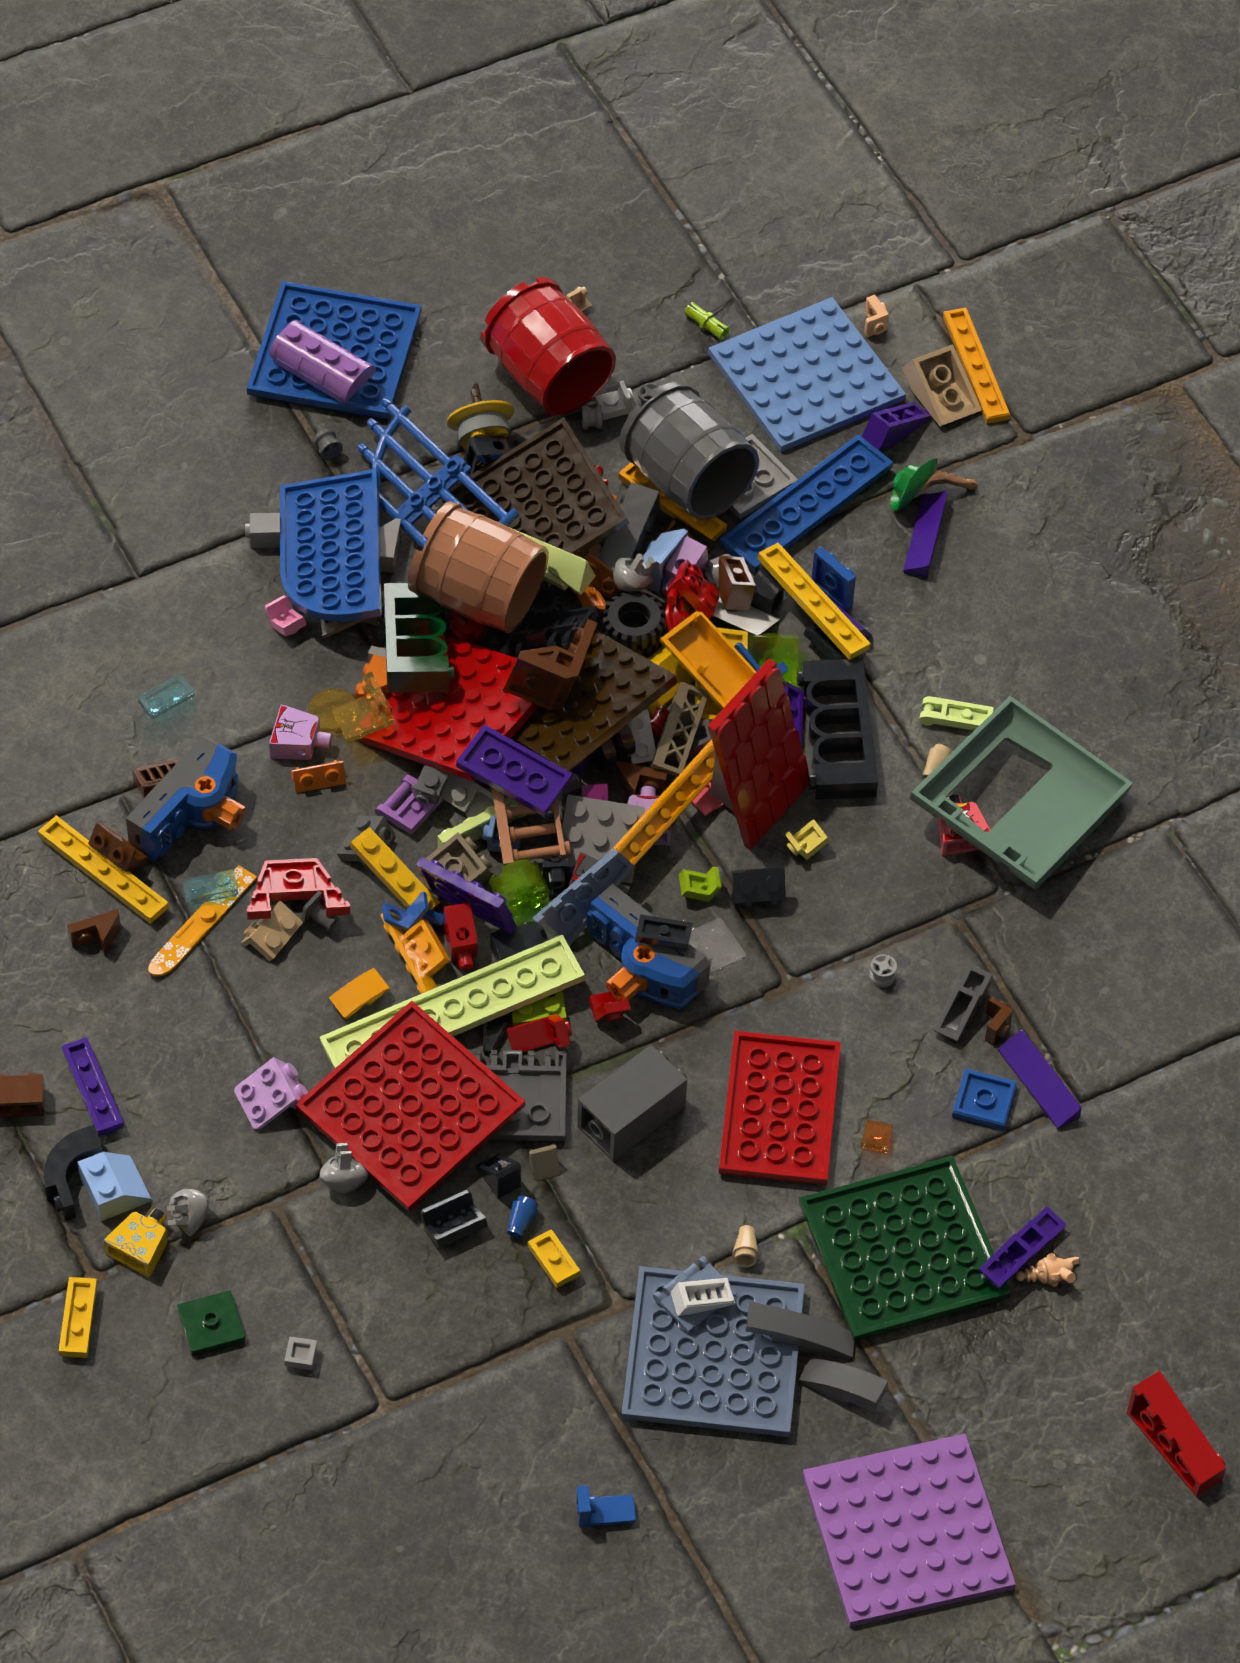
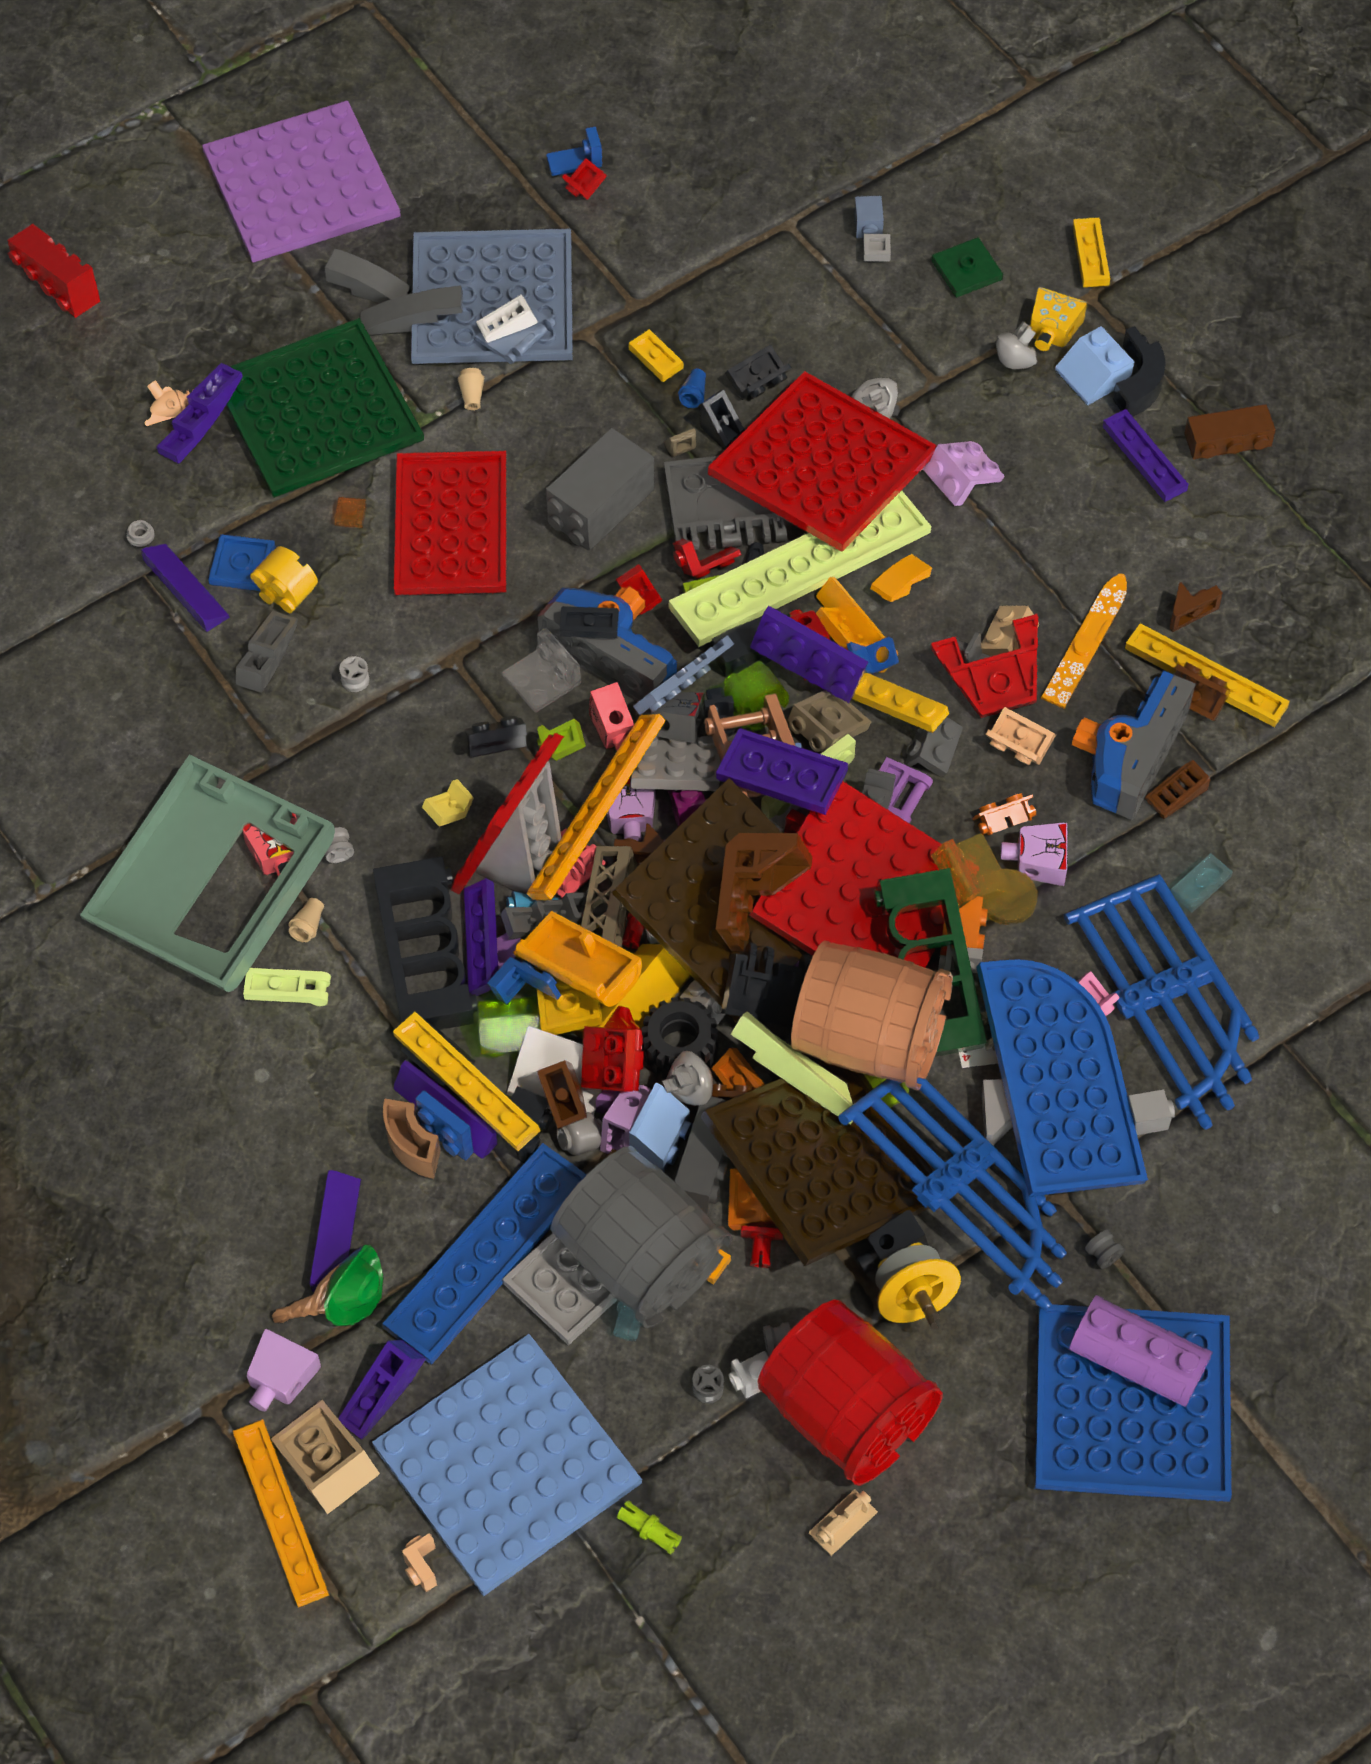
camera: 175 degrees right, 5 degrees up
(210, 887) = (1087, 672): clear light blue plate -> none
(219, 622) = (1170, 984): none -> blue piece
(289, 831) = (1020, 736): none -> light nougat bracket
(301, 1387) = (868, 215): none -> sand blue brick
(601, 1475) = (584, 179): none -> red bracket
(652, 877) = (610, 715): none -> coral torso
(868, 578) = (408, 1140): none -> medium nougat brick
(907, 819) = (340, 848): none -> light grey wheel
(944, 1052) = (284, 579): none -> yellow brick
(972, 444) = (280, 1370): none -> lavender torso
(1001, 1020) = (227, 632): reddish brown bracket -> none
(1082, 1131) = (137, 528): none -> light grey plate

